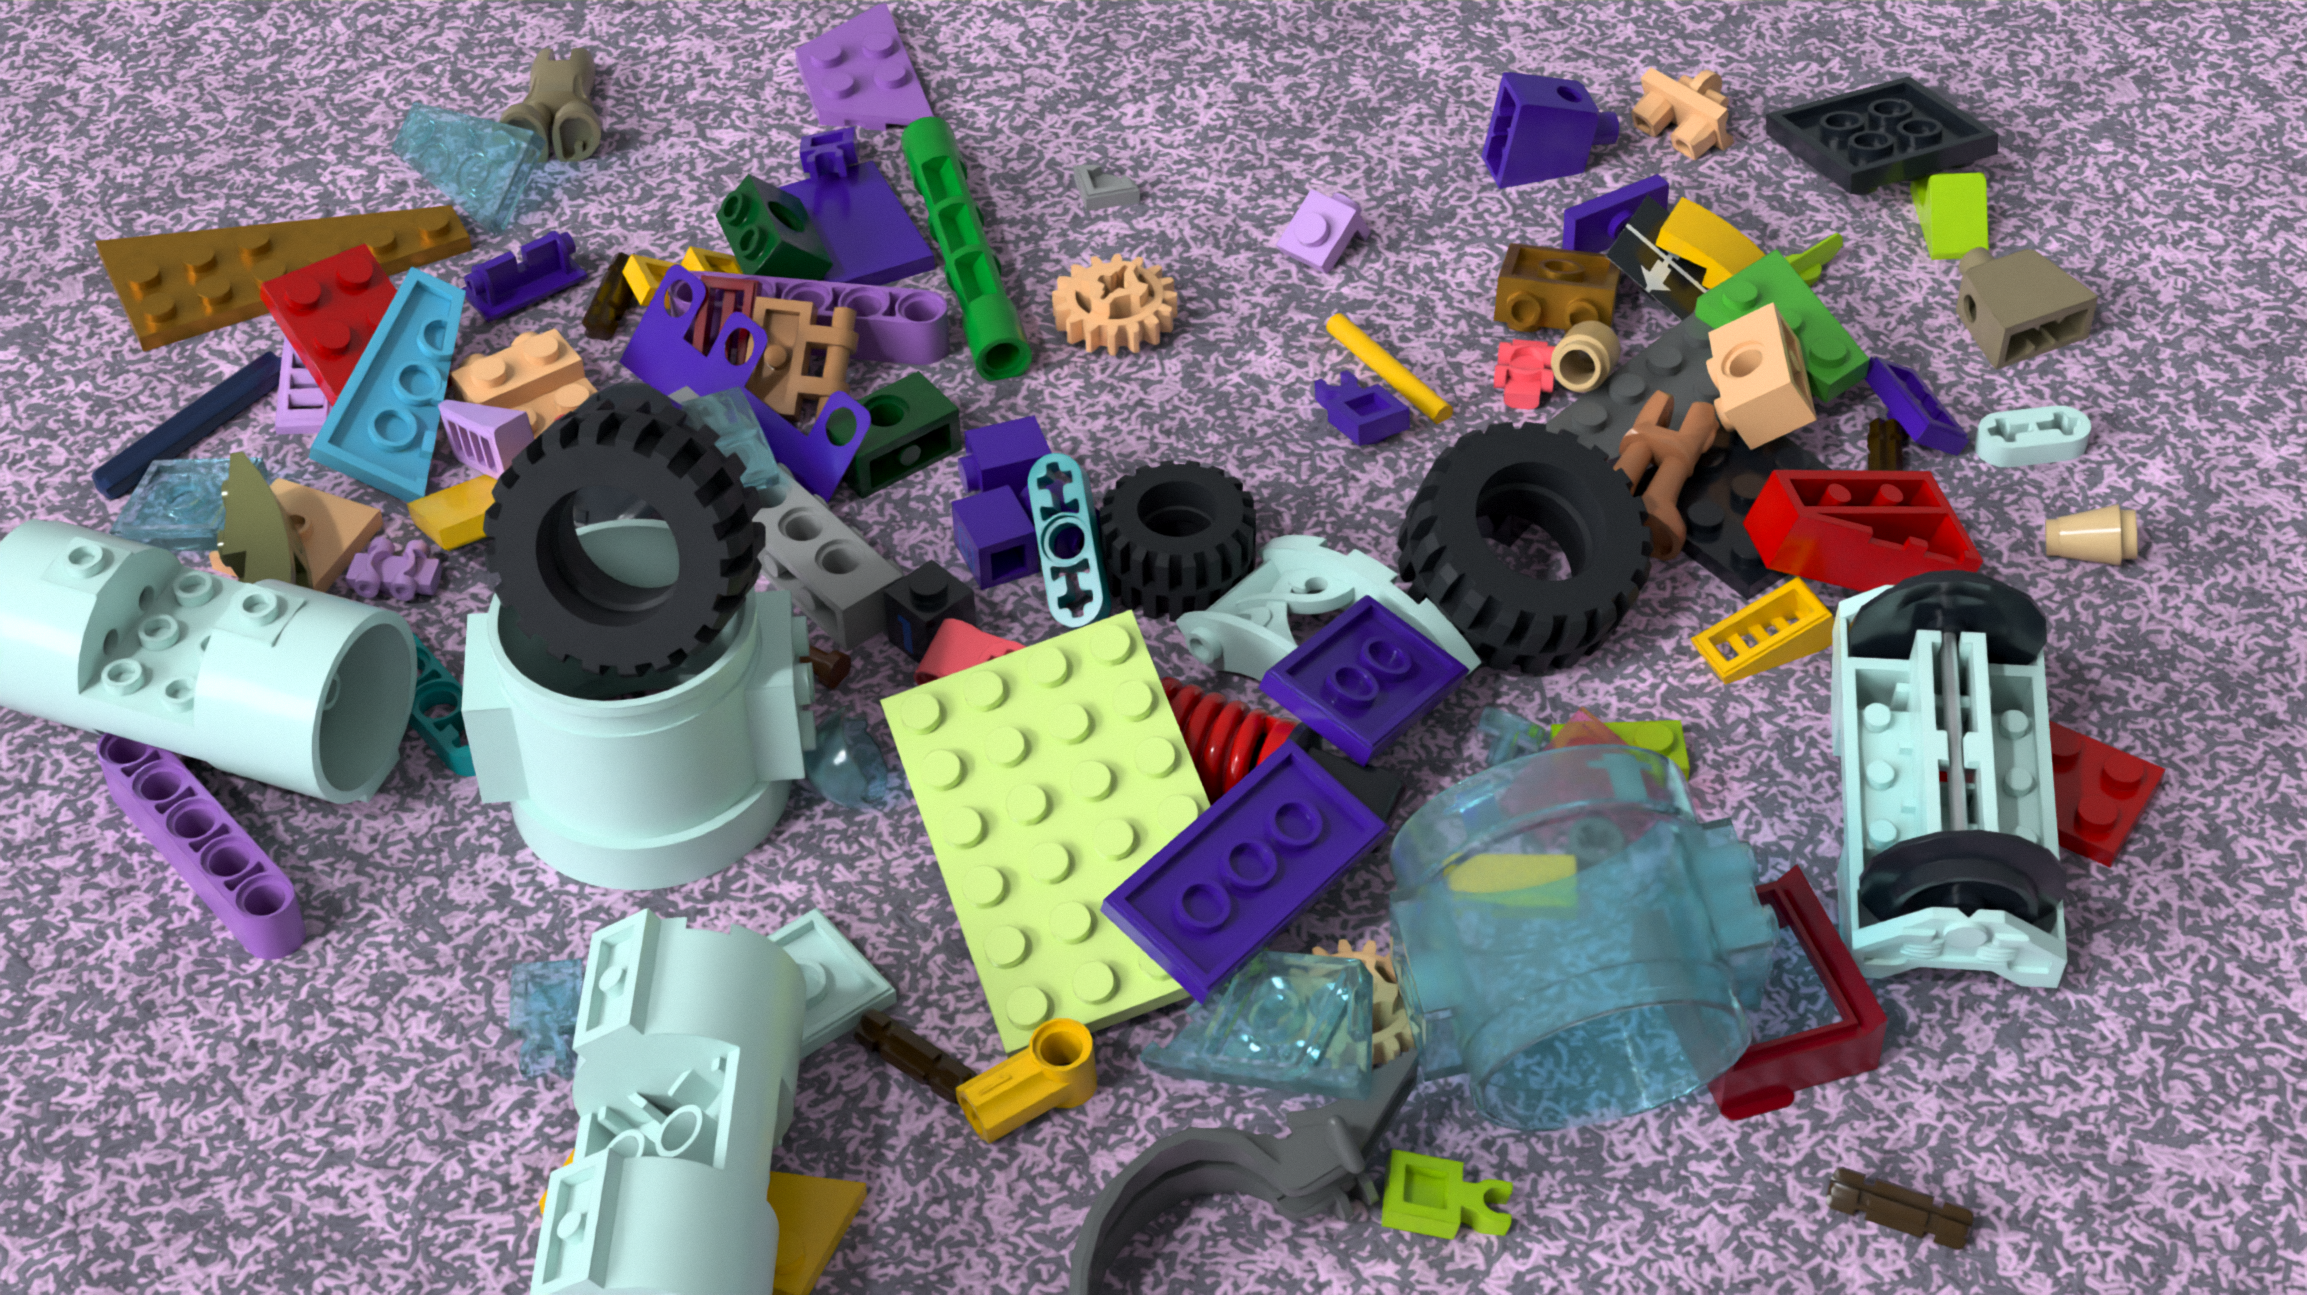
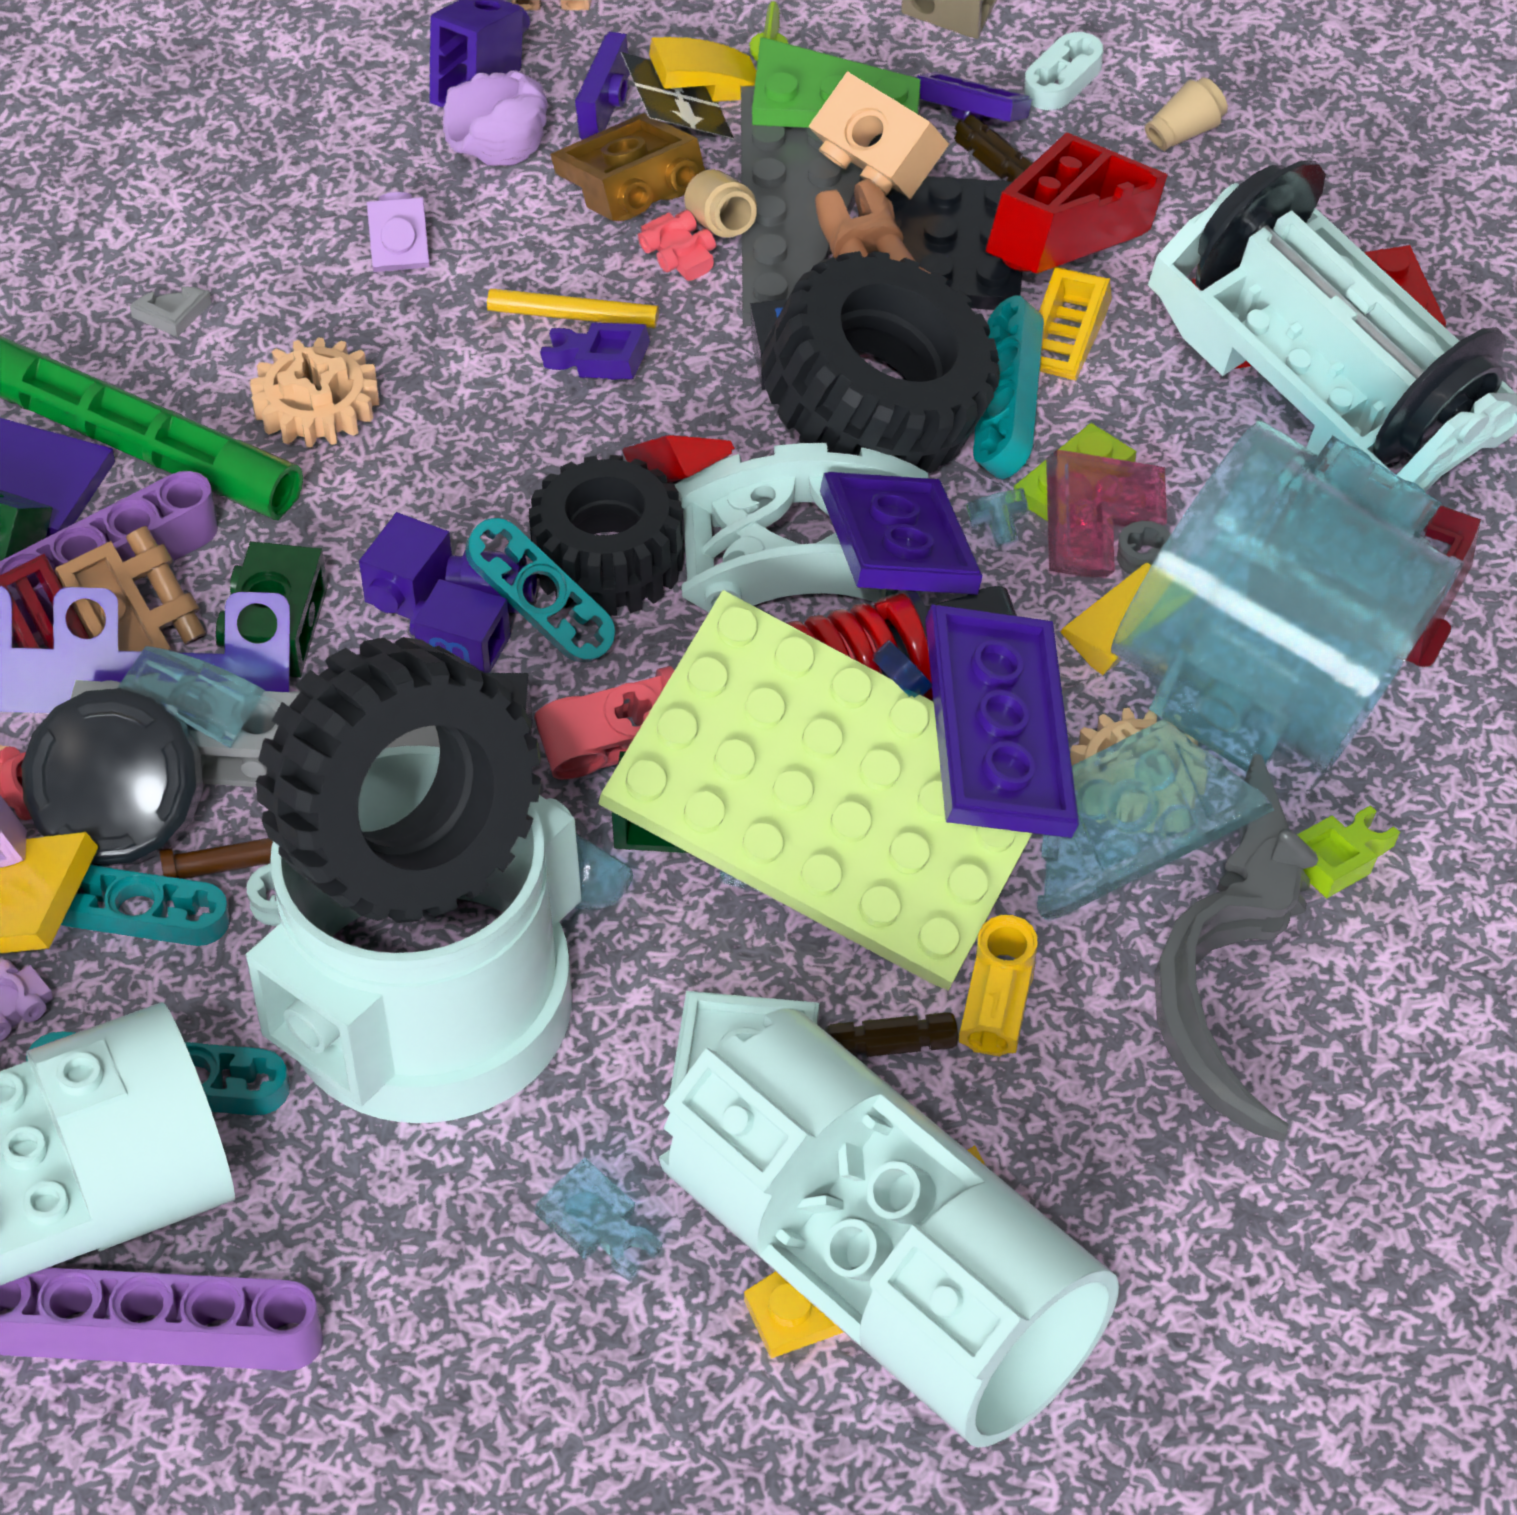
camera: 45 degrees left, 5 degrees up
(1214, 771) = (901, 670): none -> clear blue tile
(1289, 517) = (679, 455): none -> red slope
(1495, 190) = (496, 117): none -> lavender hair
(1644, 646) = (1007, 427): none -> teal beam

